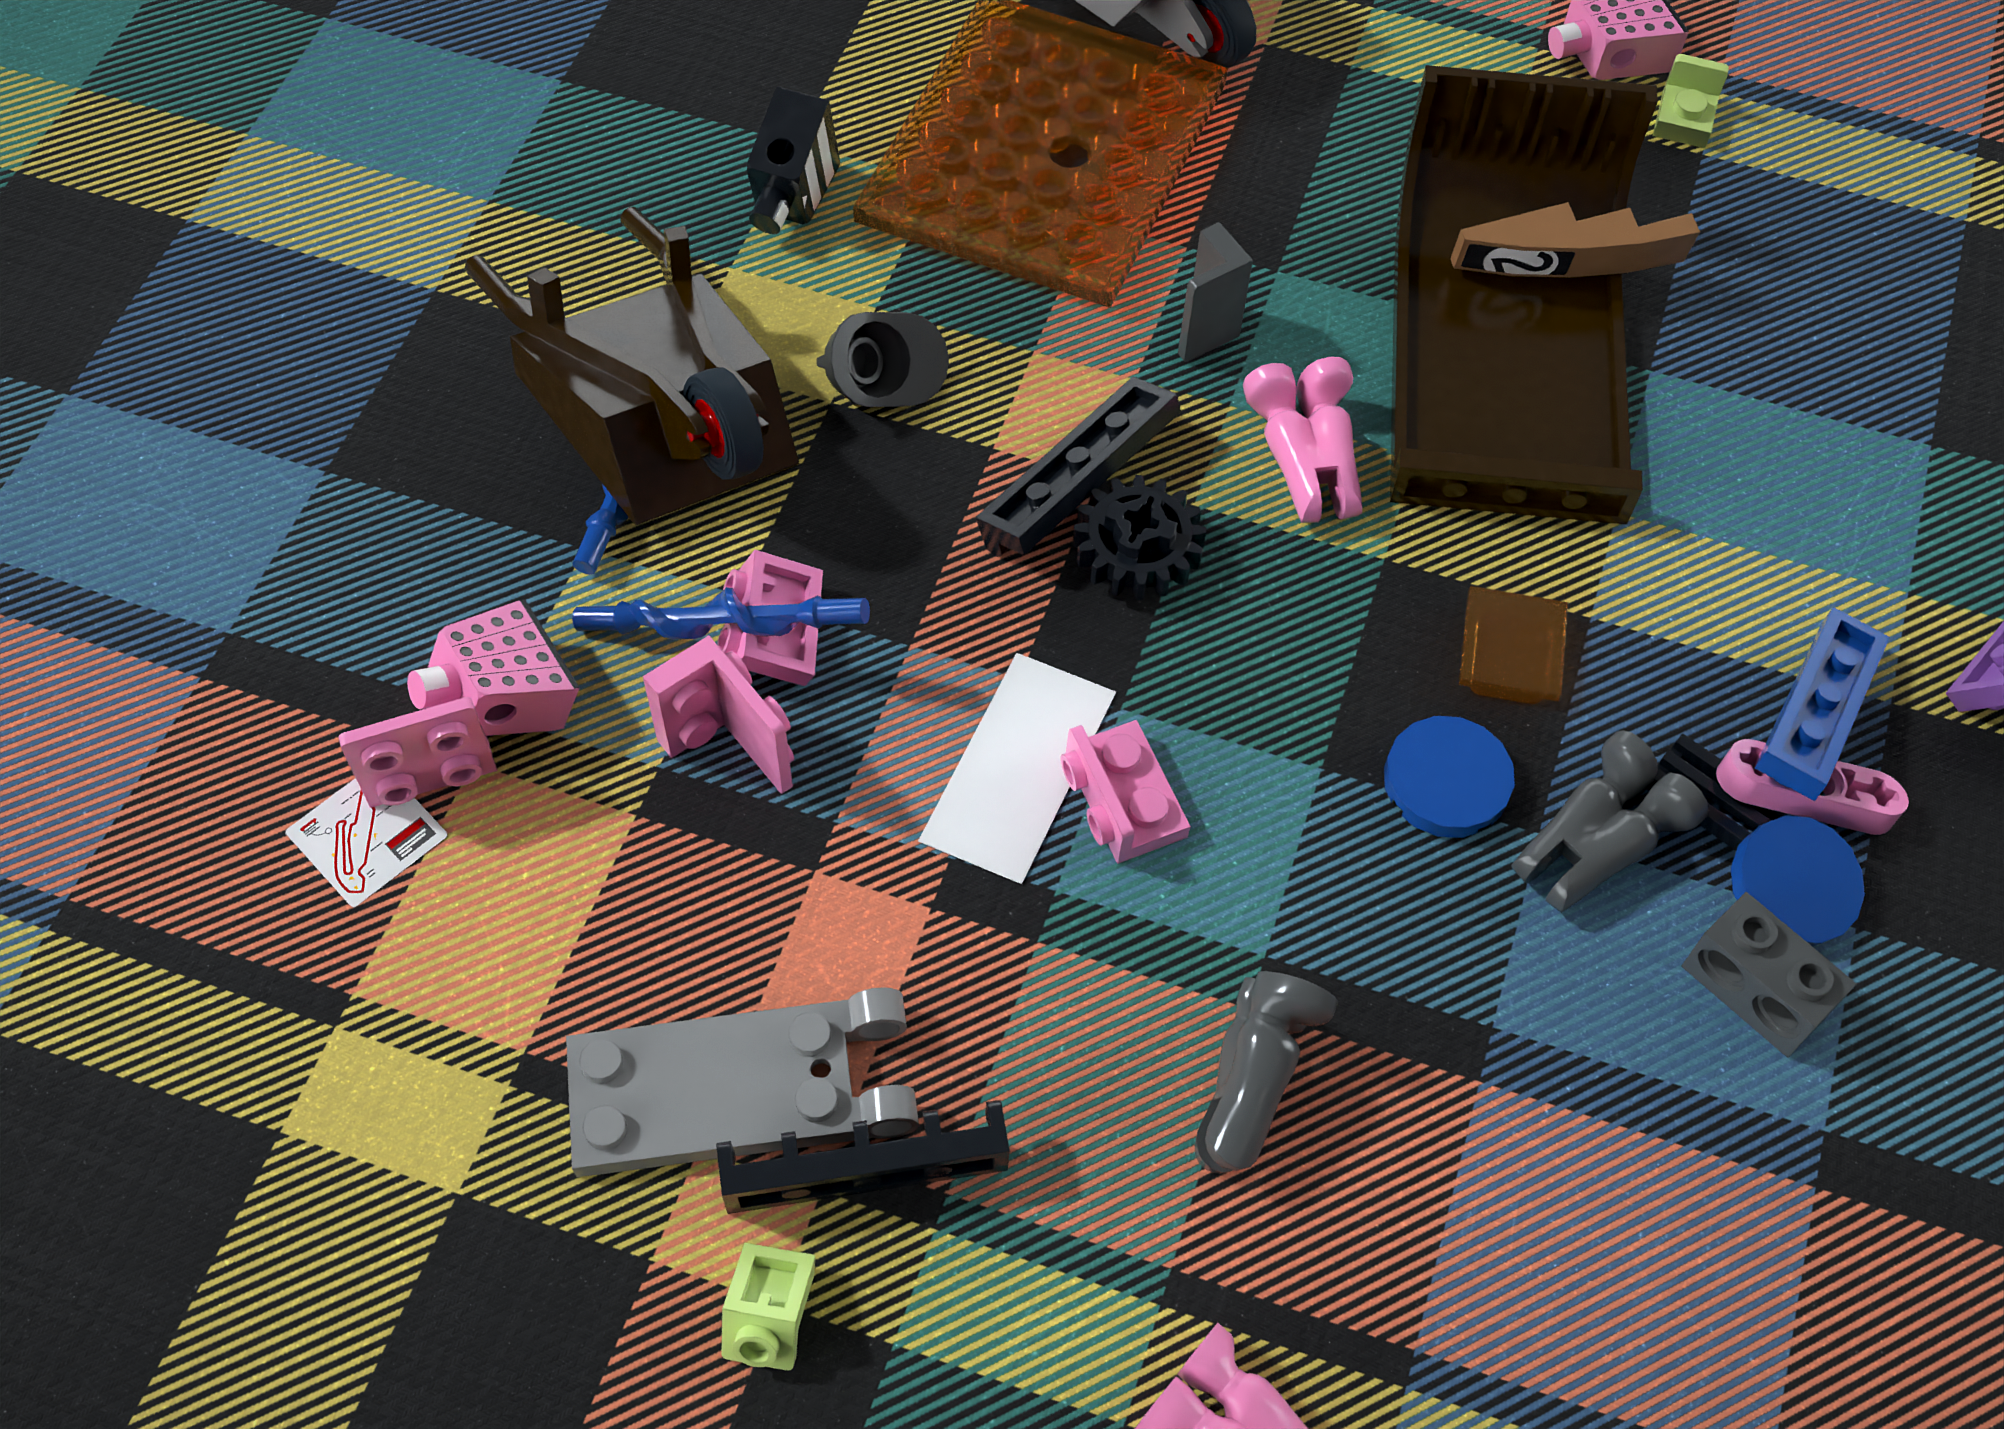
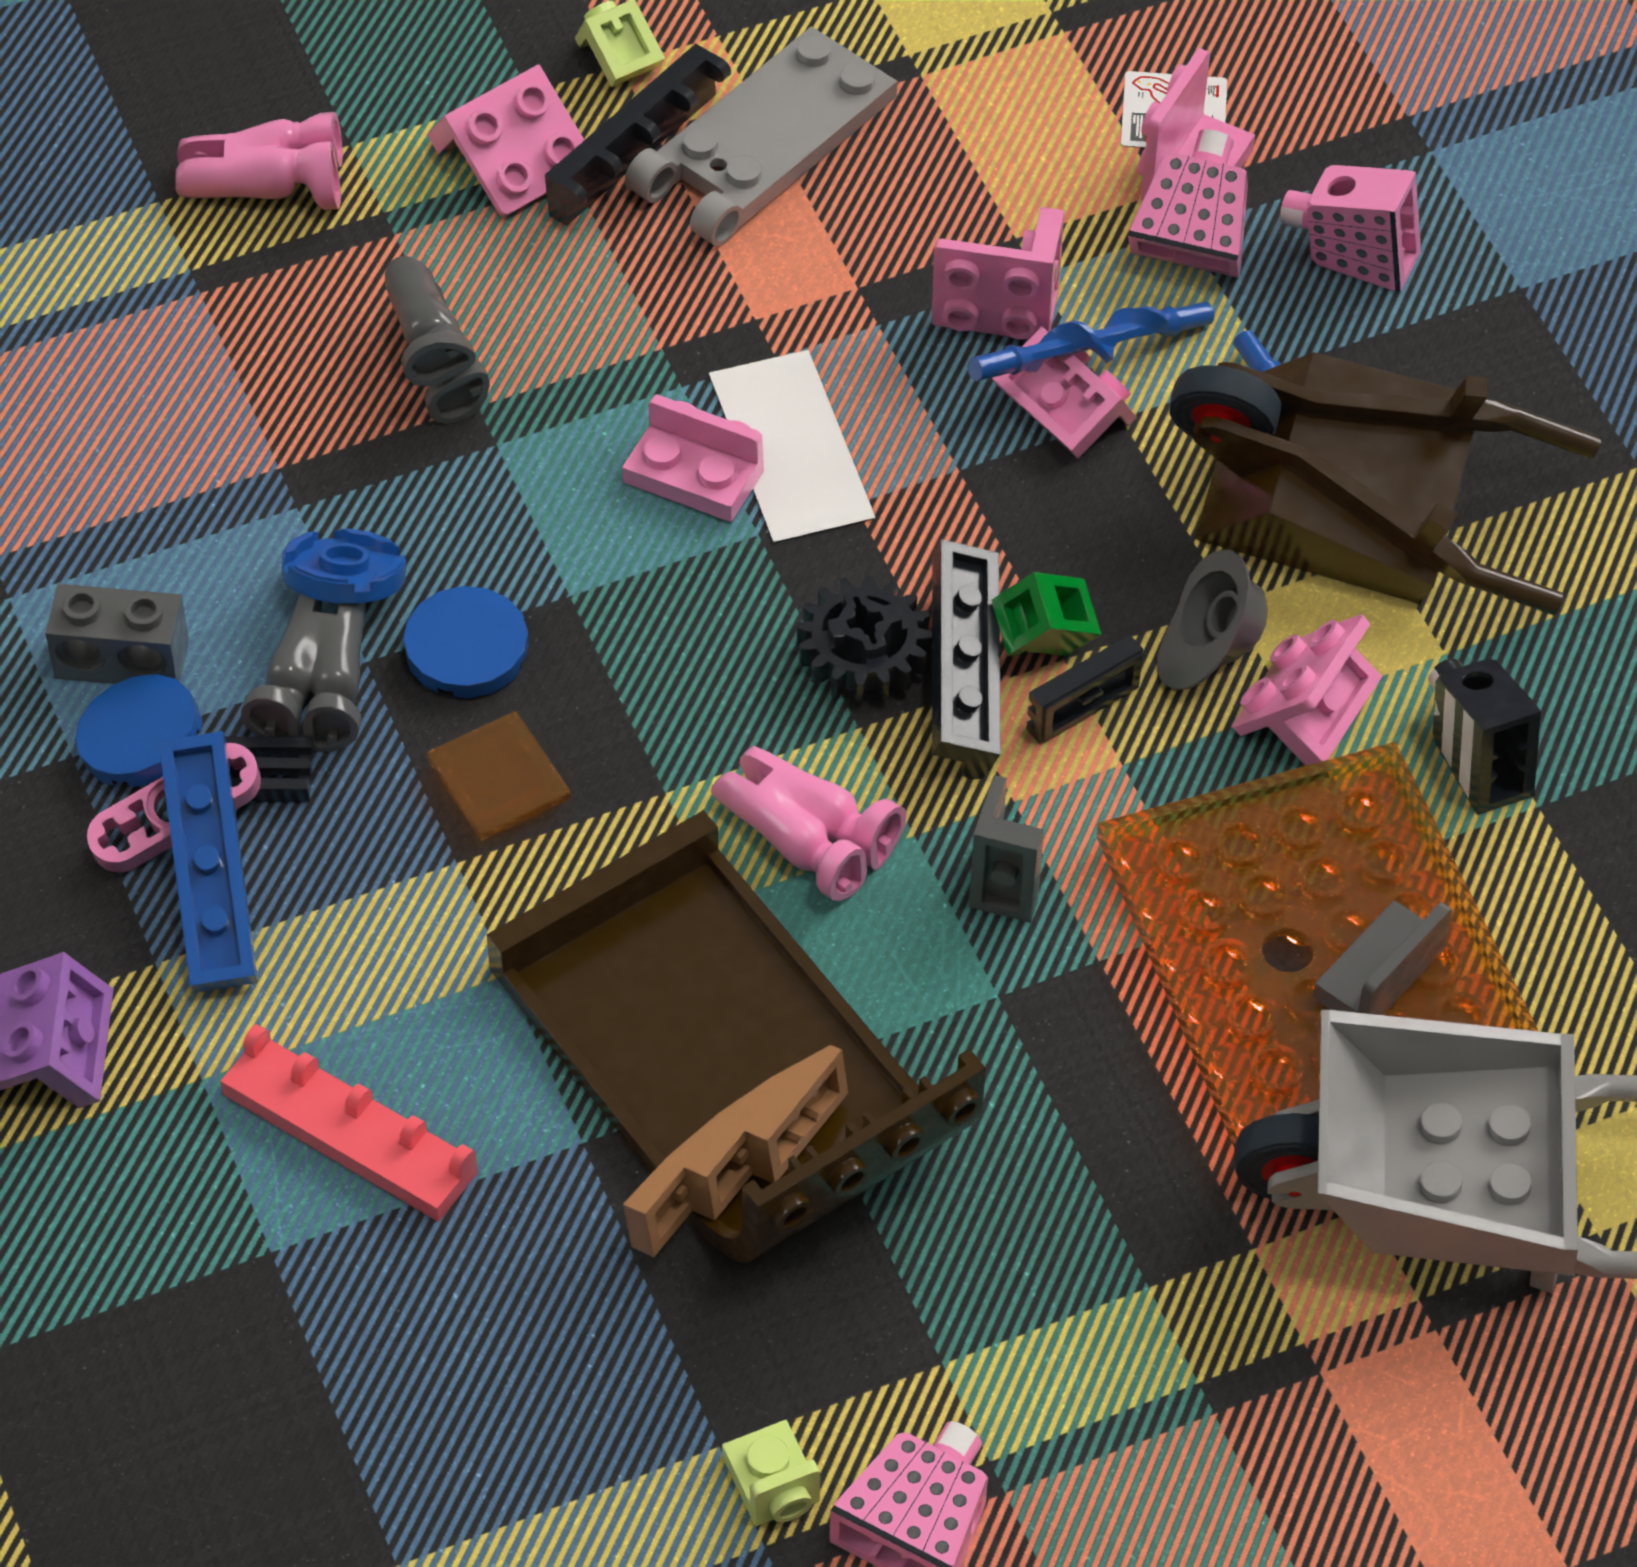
camera: 140 degrees right, 5 degrees down
(389, 563) = (1360, 222): none -> bright pink torso
(868, 266) = (1312, 690): none -> bright pink bracket
(978, 1271) = (511, 138): none -> bright pink bracket
(995, 441) = (1046, 615): none -> green brick
(1017, 388) = (1084, 689): none -> black tile
(1034, 67) = (1384, 960): none -> dark grey panel
(1515, 896) = (345, 568): none -> blue tile
(1822, 477) = (349, 1125): none -> coral hinge

